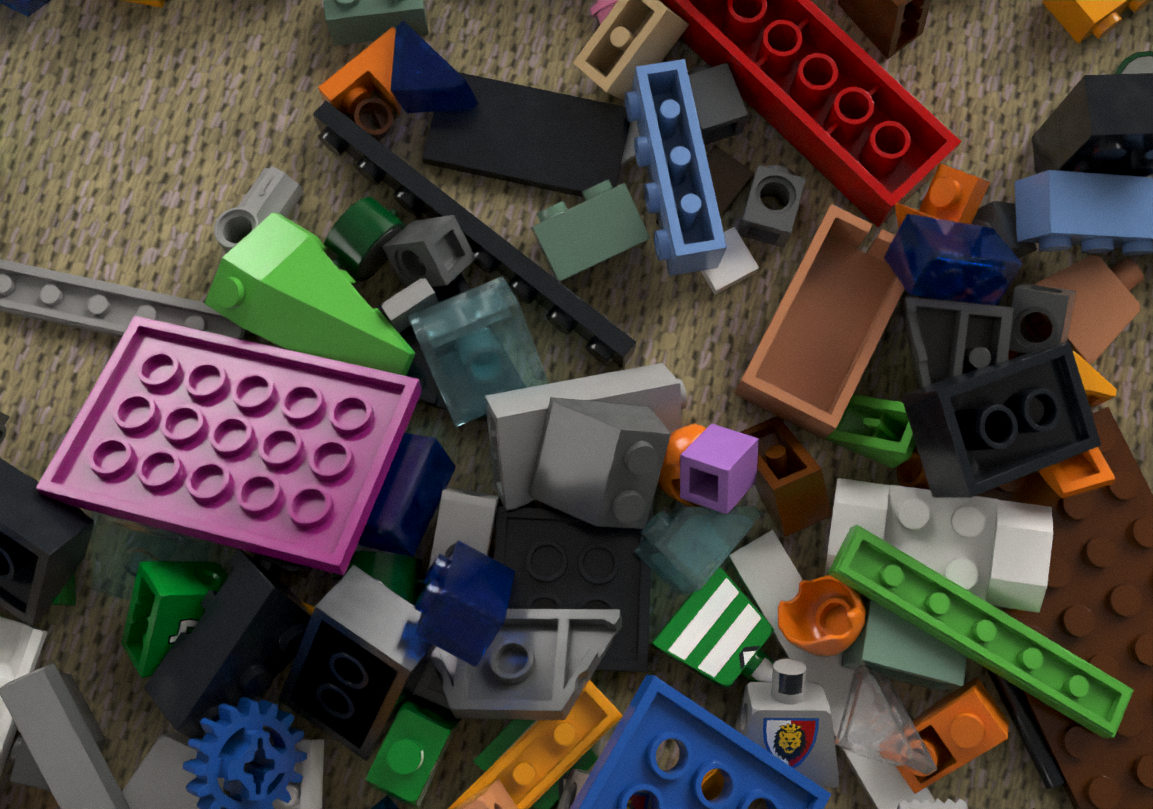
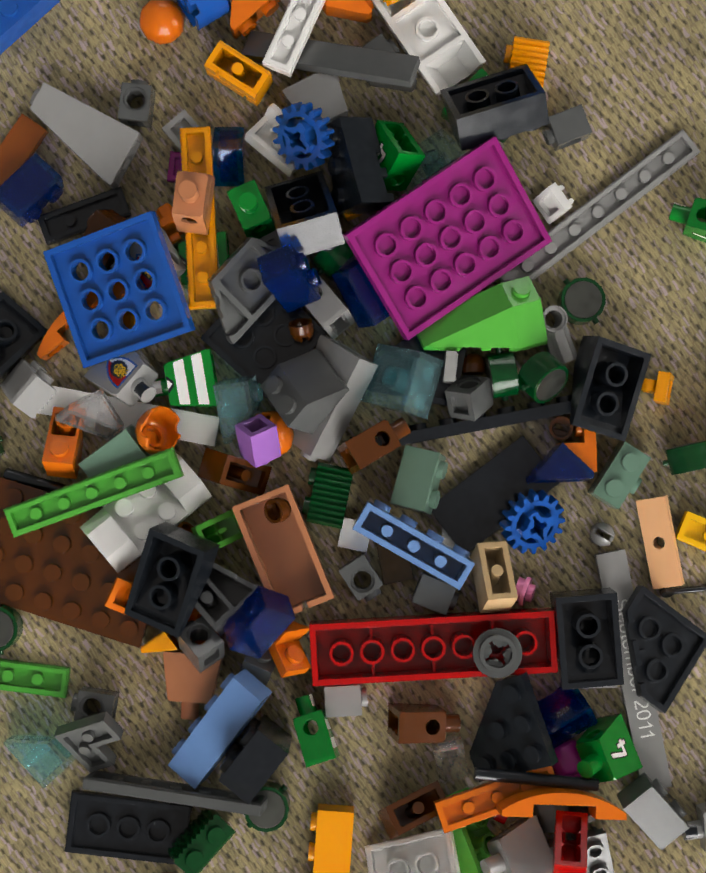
camera: 130 degrees right, 10 degrees up
(80, 356) = (552, 203): none -> white tile
(183, 220) = (582, 300): none -> pearl dark grey piece
(222, 41) = (660, 388): none -> light orange tile
(271, 97) = (606, 386): none -> black slope
(325, 179) = (543, 377): none -> dark green piece
(379, 286) = (474, 365): none -> reddish brown hinge
(520, 541) = (301, 328): none -> reddish brown hinge
(521, 58) = (529, 523): none -> blue gear
(598, 310) = (363, 448): none -> reddish brown torso
(705, 328) = (329, 495): none -> dark green brick
(786, 368) = (277, 510): none -> reddish brown hinge
(942, 96) = (344, 700): none -> light grey brick
(1012, 99) = (315, 747): none -> green torso

